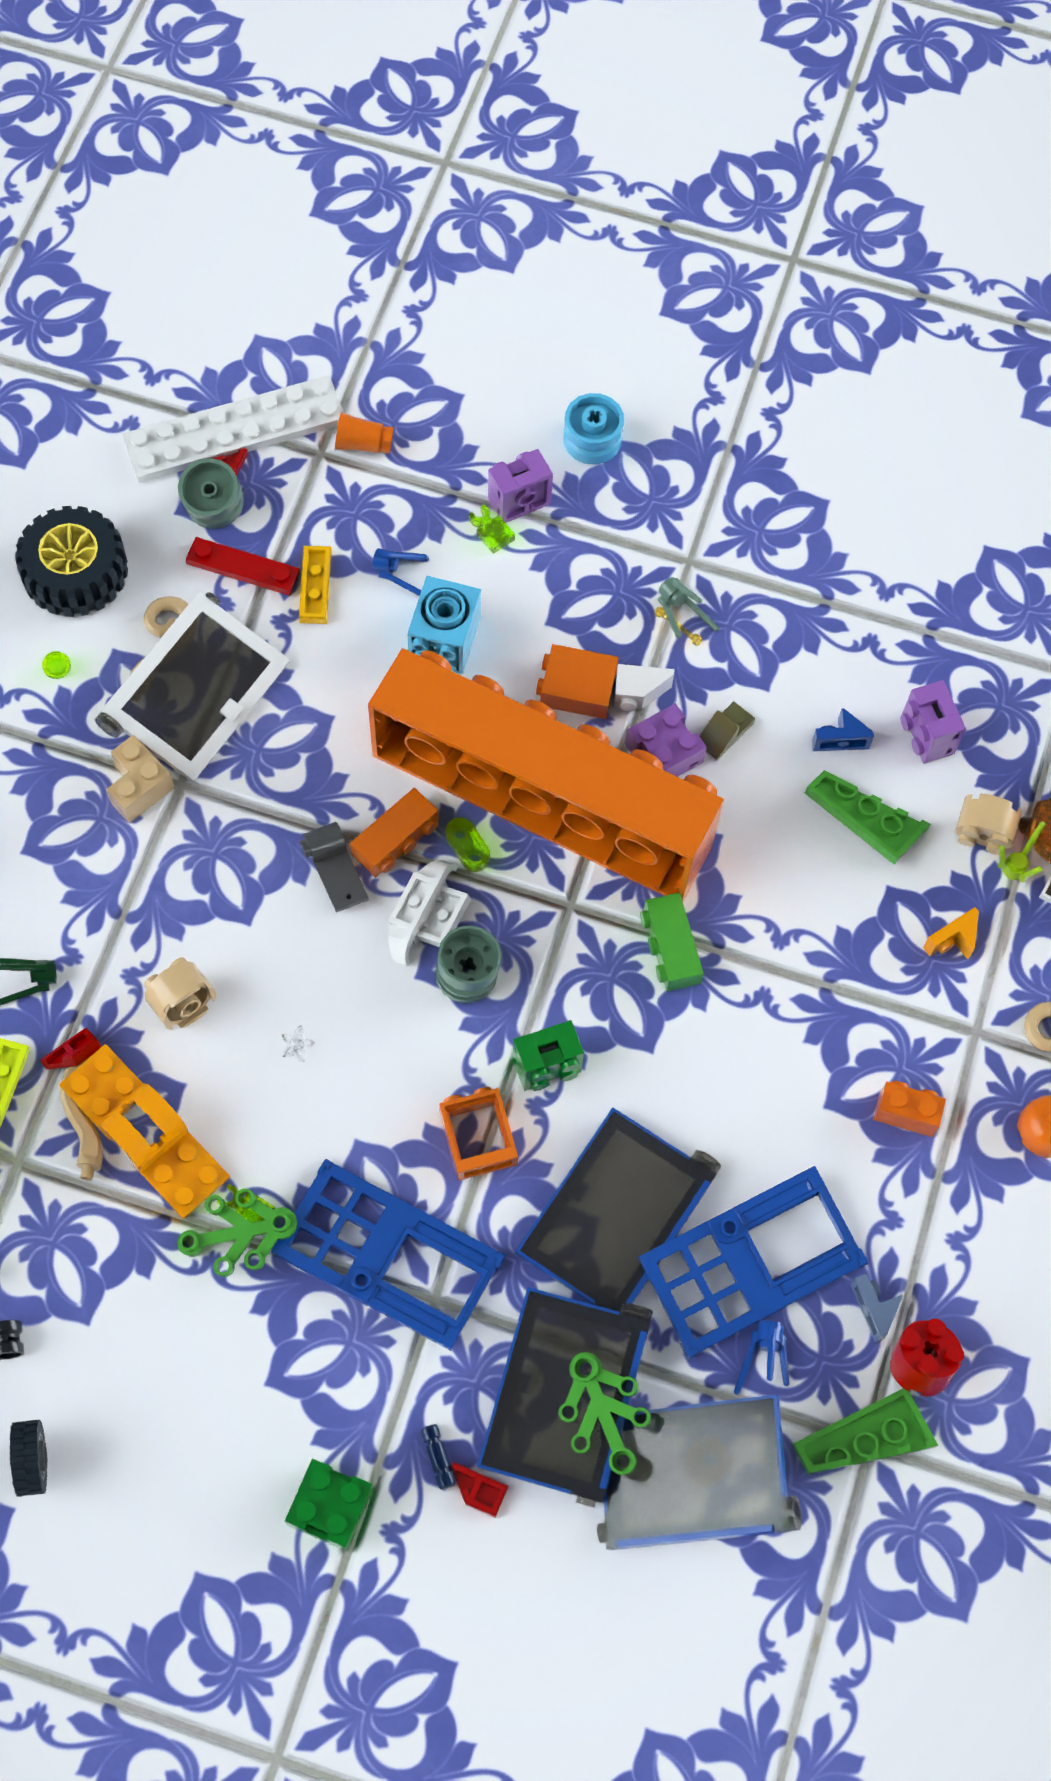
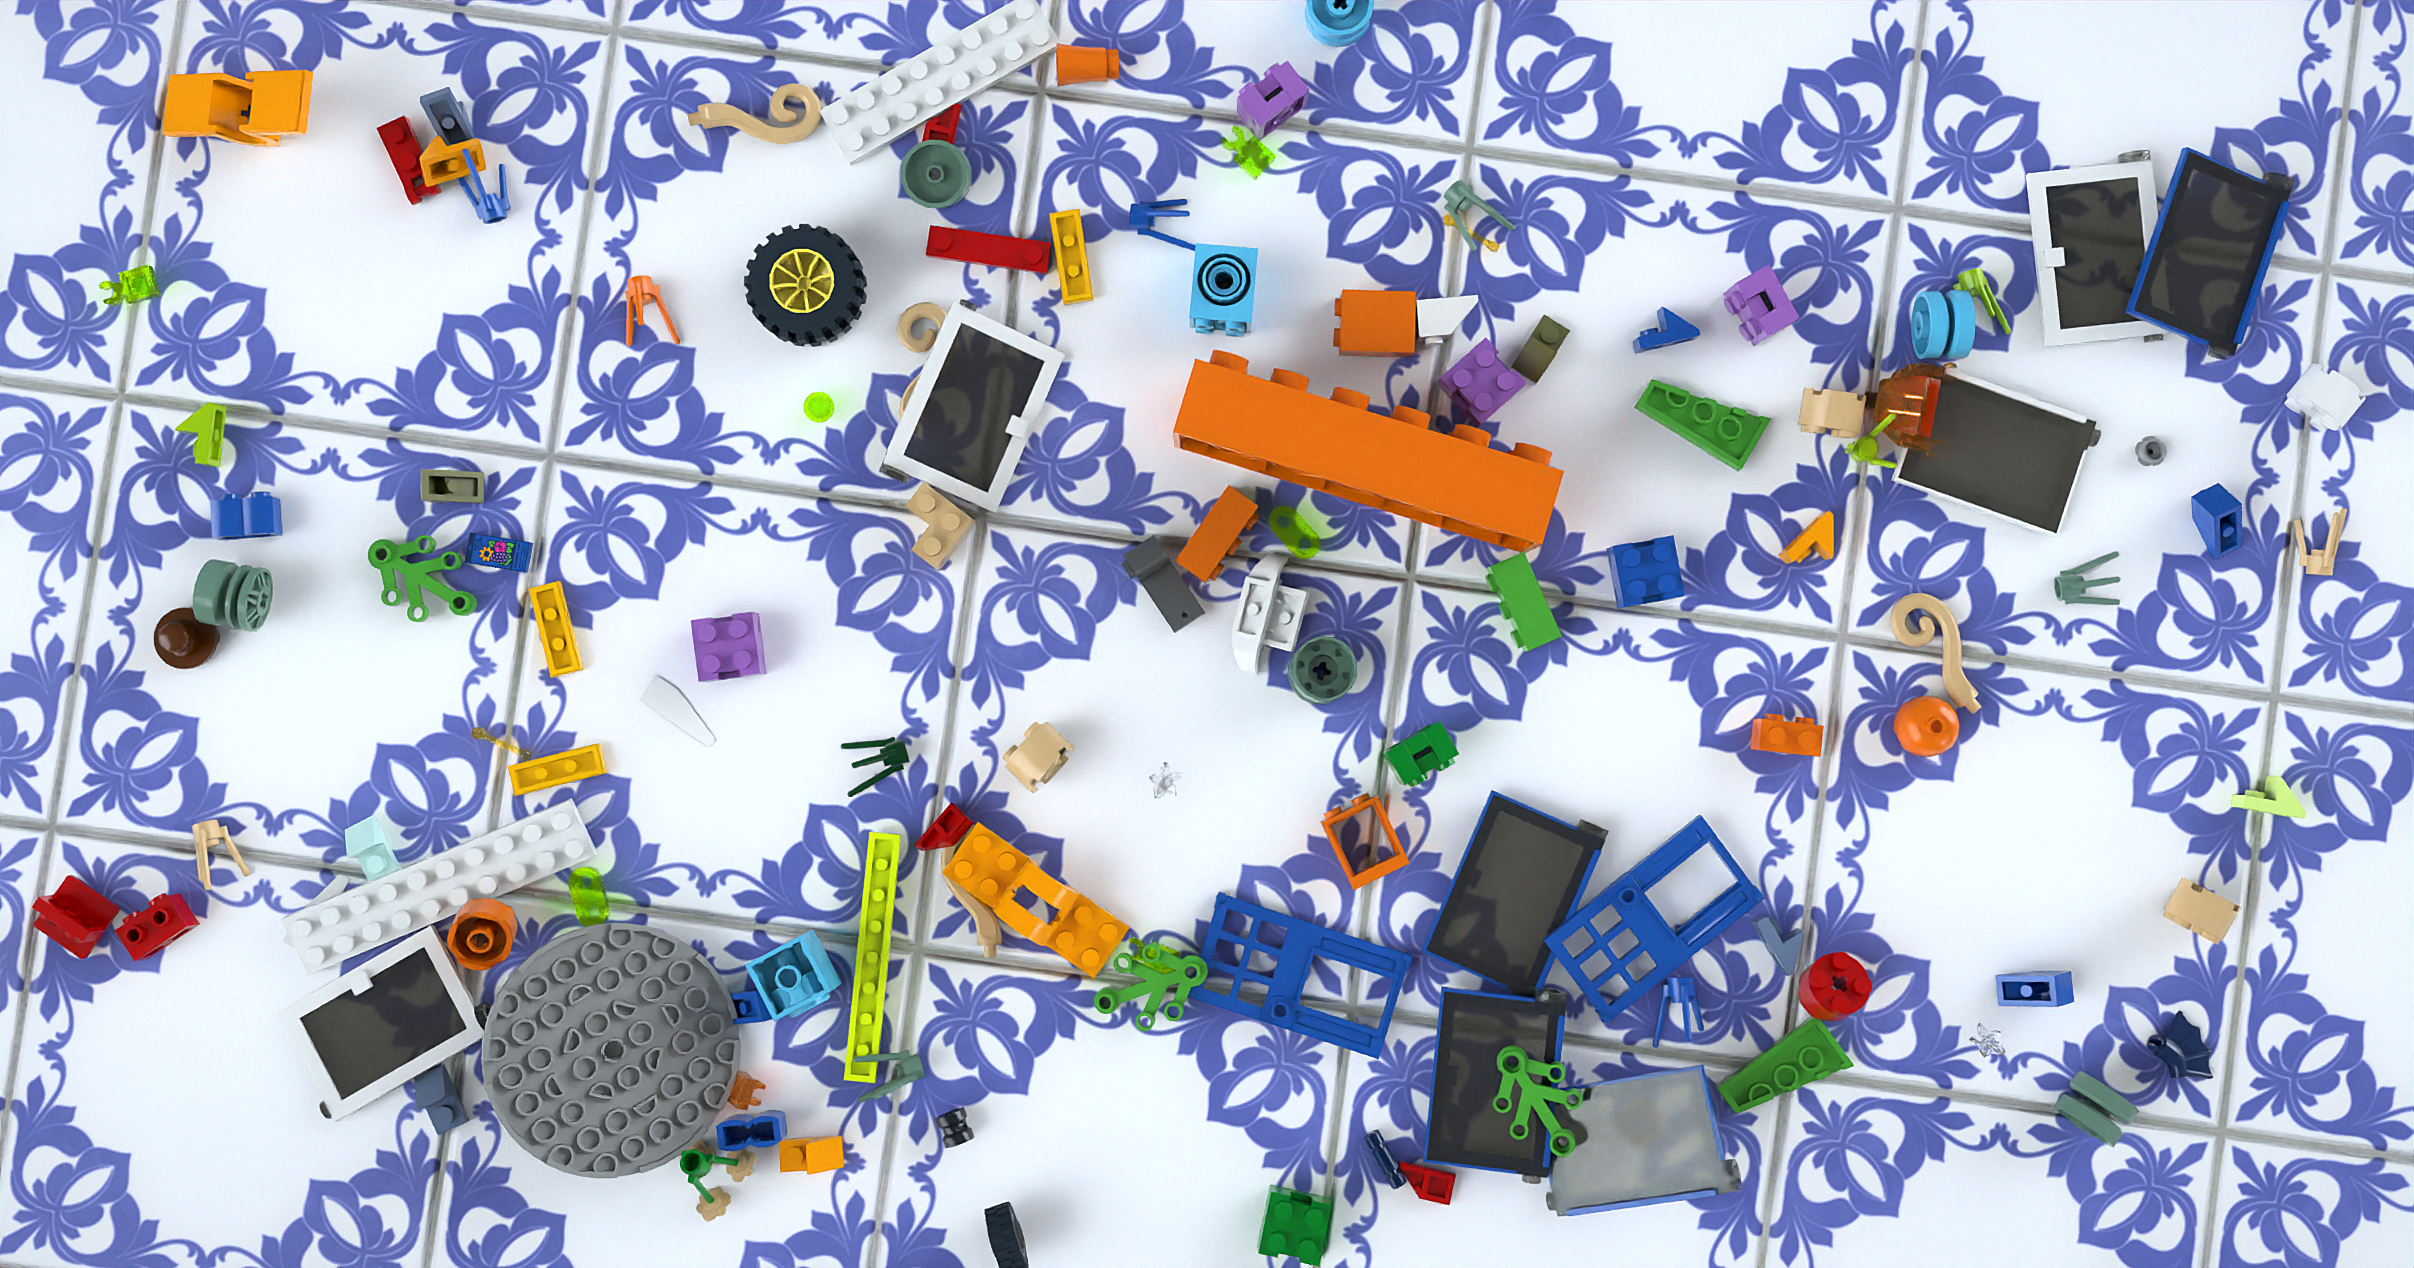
camera: 10 degrees left, 20 degrees up
(40, 423) = (722, 114): none -> tan plant
(793, 935) = (1645, 572): none -> blue piece

